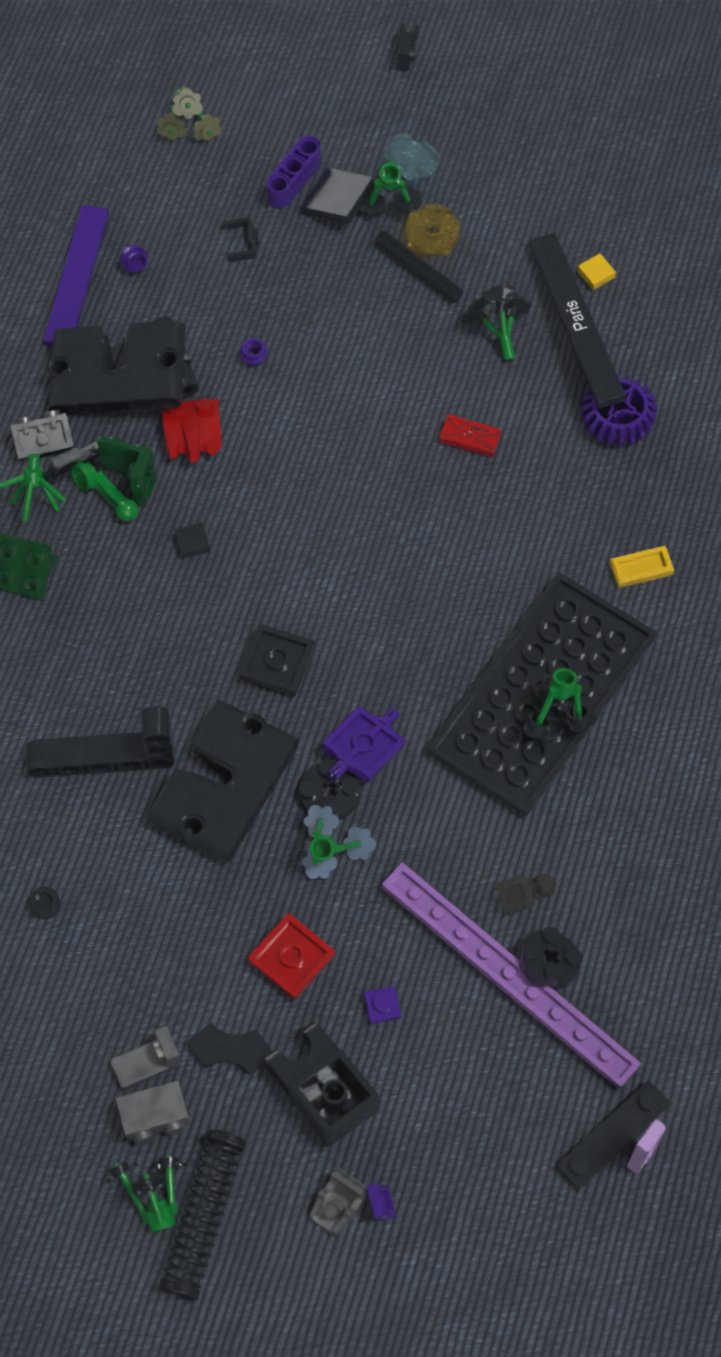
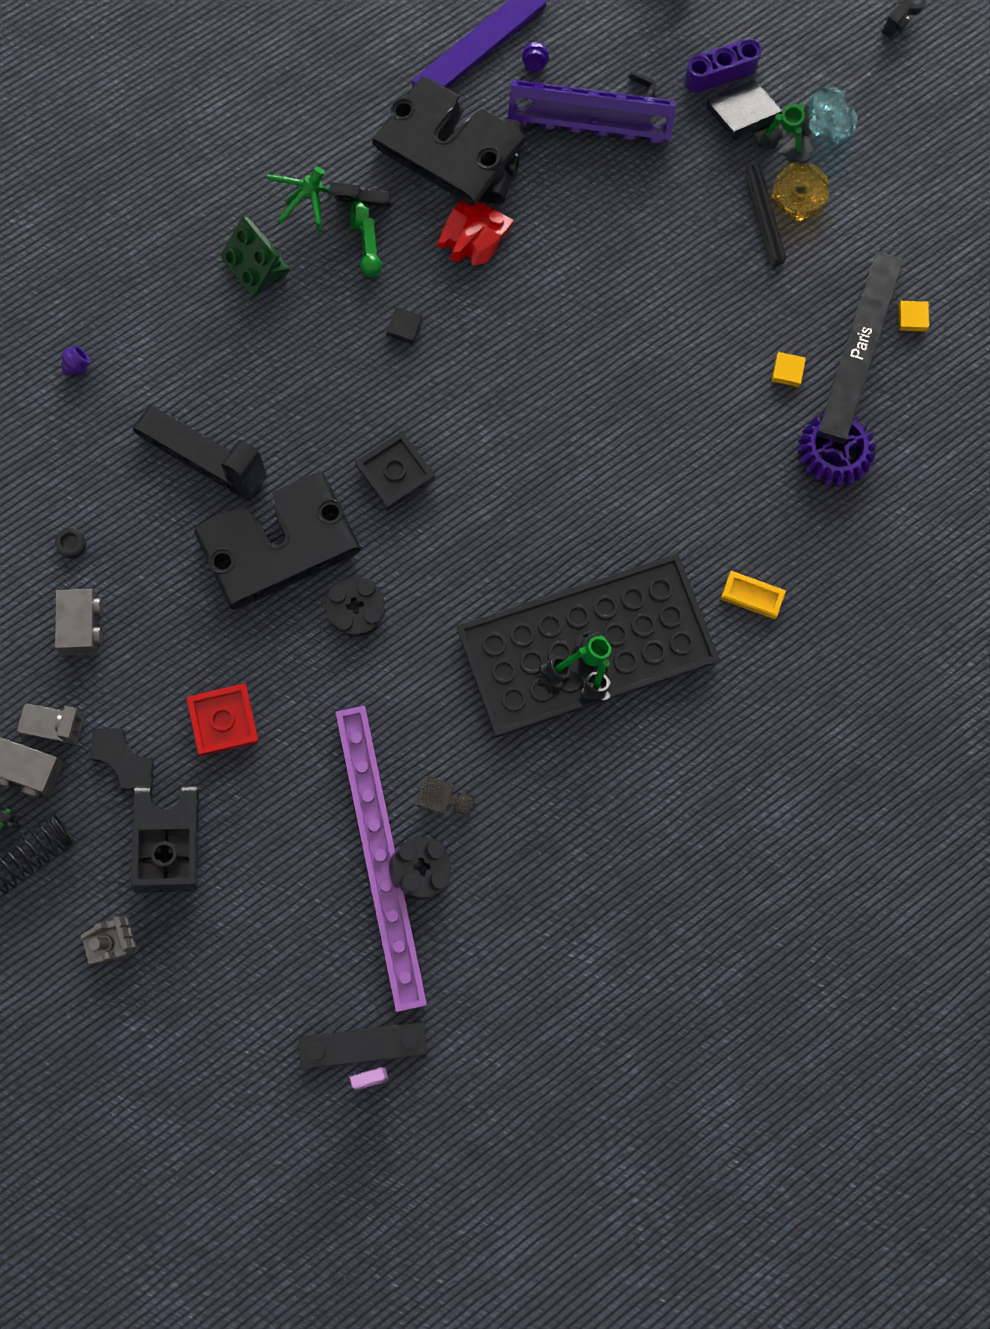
camera: 30 degrees right, 10 degrees up
(41, 435) = (350, 159): flat silver bracket -> none
(104, 961) = (78, 622): none -> flat silver brick
(131, 460) = (400, 241): dark green bracket -> none
(216, 271) = (591, 111): none -> dark purple piece
(253, 345) = (576, 193): dark purple plate -> none
(321, 853) = (304, 652): sand blue plant -> none
(363, 744) = (408, 587): dark purple plate -> none
(381, 1202) = (140, 965): dark purple tile -> none
(382, 1005) = (264, 809): dark purple plate -> none
(470, 435) = (696, 388): red tile -> none
(505, 299) = (804, 283): black plant -> none
(531, 374) = (788, 369): none -> yellow tile

